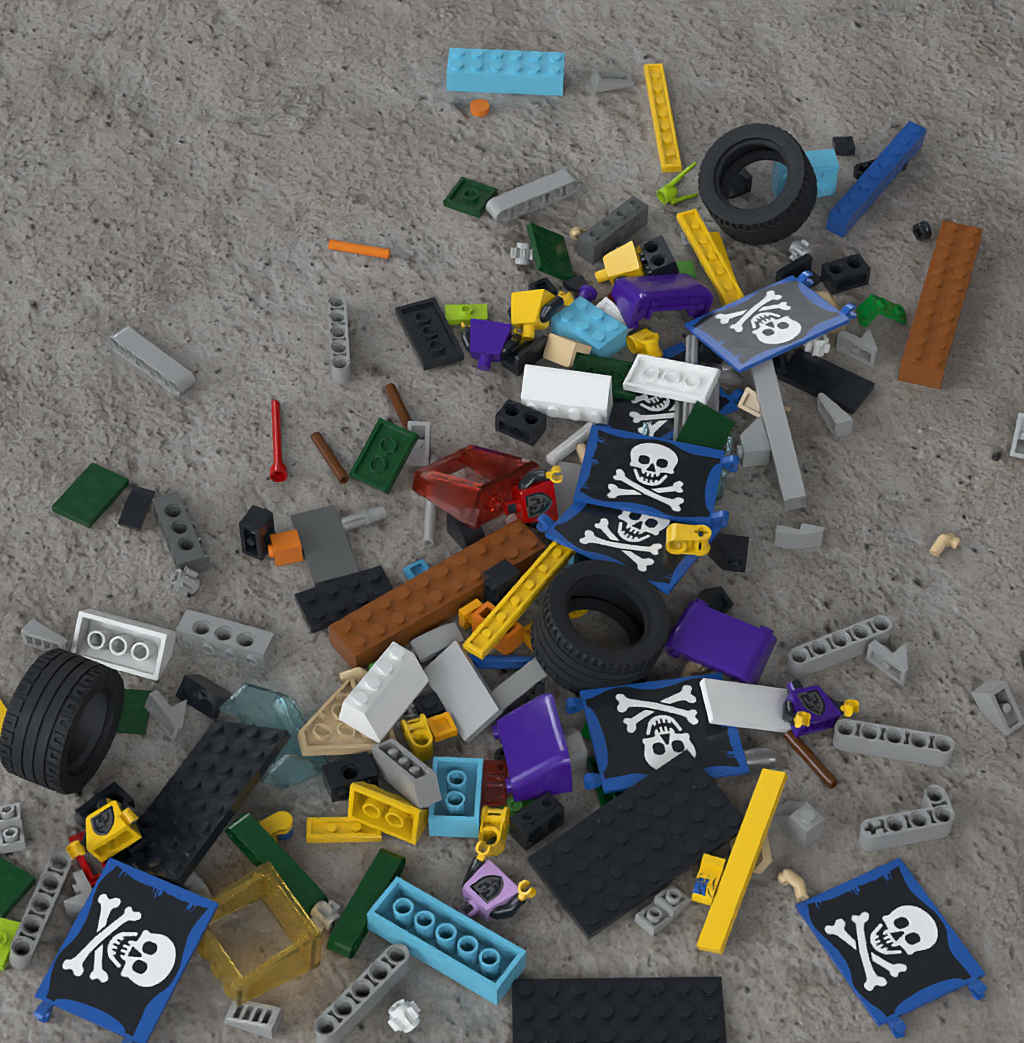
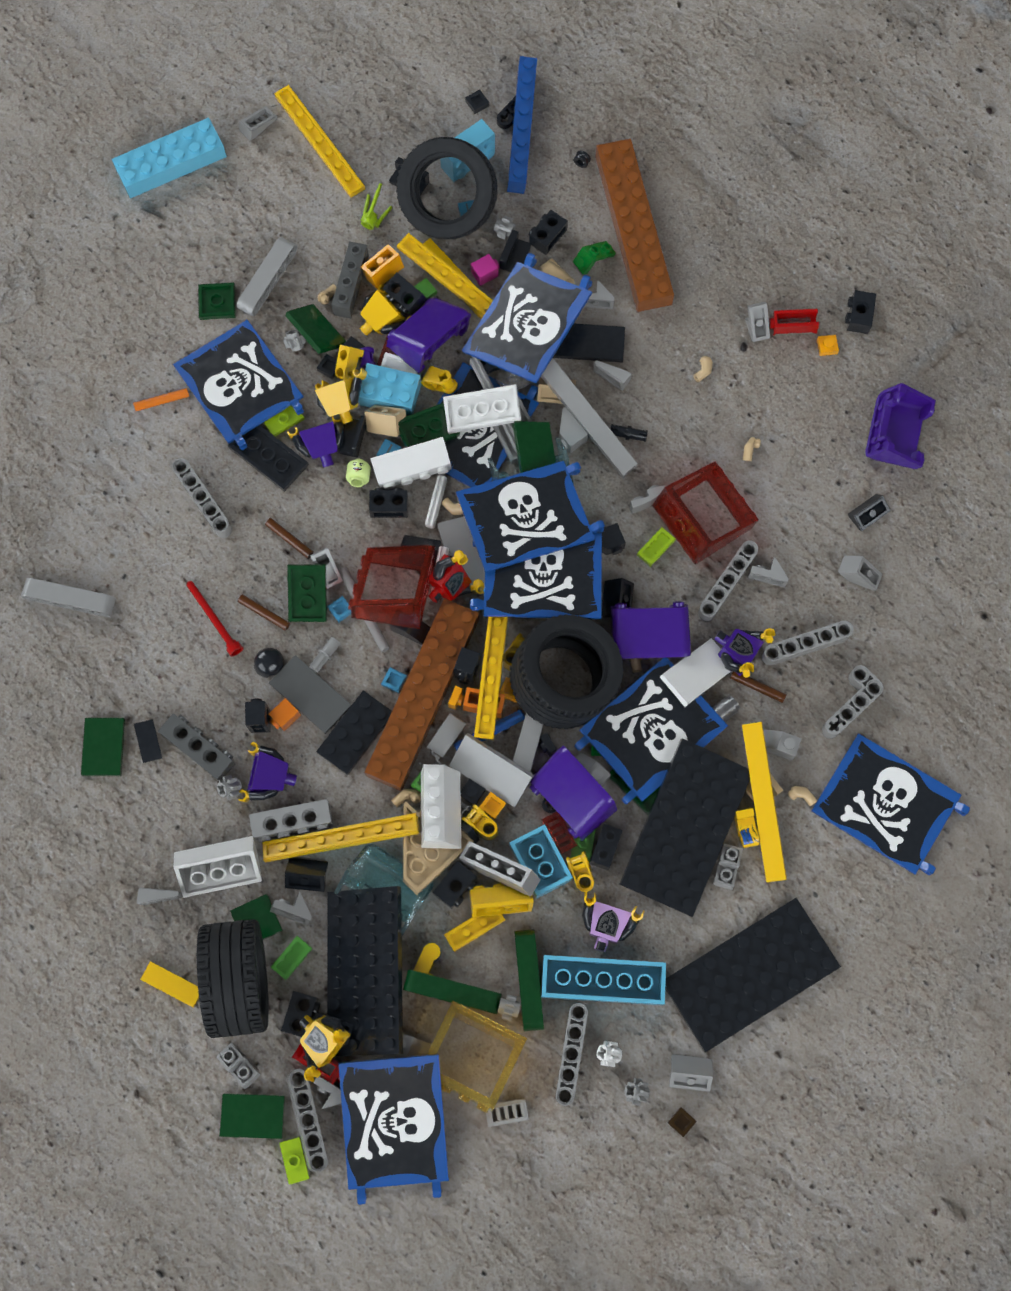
camera: 30 degrees left, 25 degrees up
(135, 759) = (291, 957): none -> bright green plate
(229, 588) = (267, 774): none -> dark purple torso
(263, 674) = (340, 837): none -> yellow tile
(303, 498) = (268, 662): none -> black hair
(400, 734) = (469, 831): none -> black tile
(405, 491) = (339, 609): none -> dark azure tile
(444, 265) = (238, 382): none -> flag
(479, 107) = (168, 204): orange tile -> none
(508, 384) = (358, 472): none -> yellowish green head
(566, 282) = (347, 361): none -> yellow leg
(652, 226) = (382, 266): none -> light orange brick
(686, 539) = (589, 564): yellow piece -> none
(757, 276) = (485, 269): none -> dark pink brick
(779, 582) = (656, 546): none -> lime plate
(818, 473) = (629, 432): none -> black pin
(840, 538) = (686, 527): none -> clear red windscreen
(940, 456) = (706, 368): none -> tan arm

